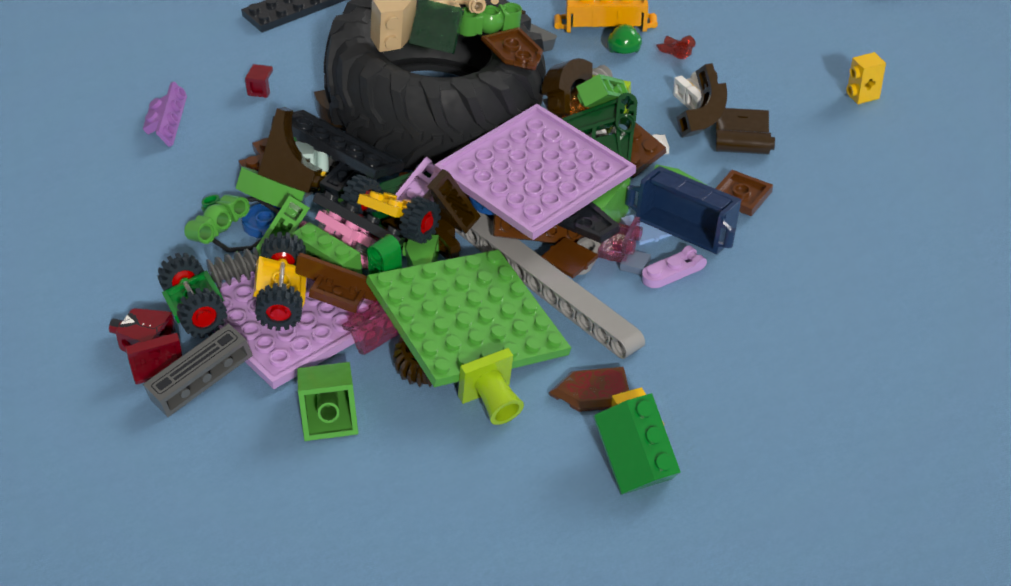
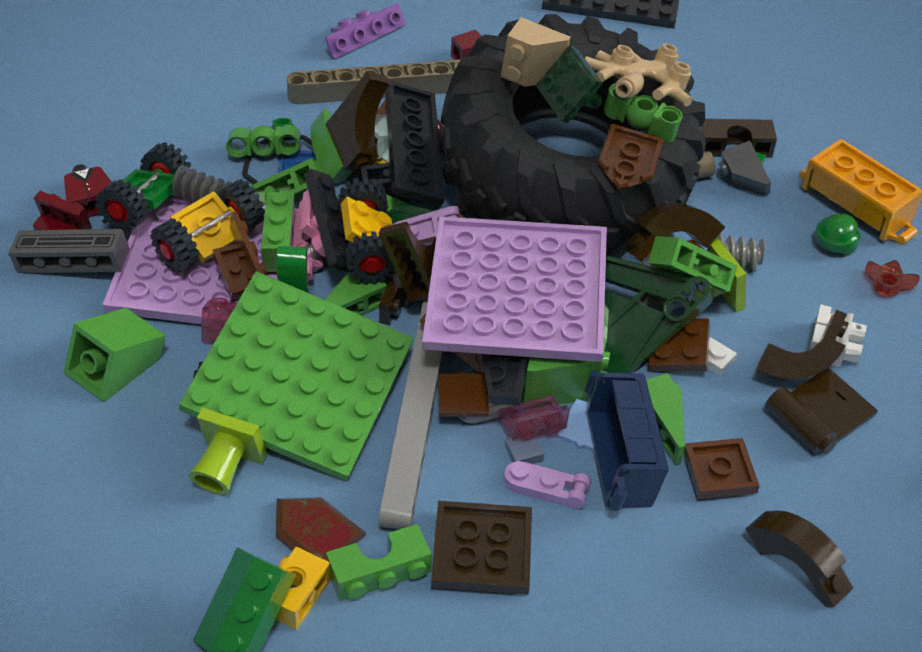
camera: 45 degrees right, 5 degrees up
(237, 132) = (336, 84): none -> dark tan beam
(663, 359) = (357, 574): none -> bright green arch
(692, 321) = (482, 547): none -> dark brown plate
(835, 189) = (807, 547): none -> dark brown arch

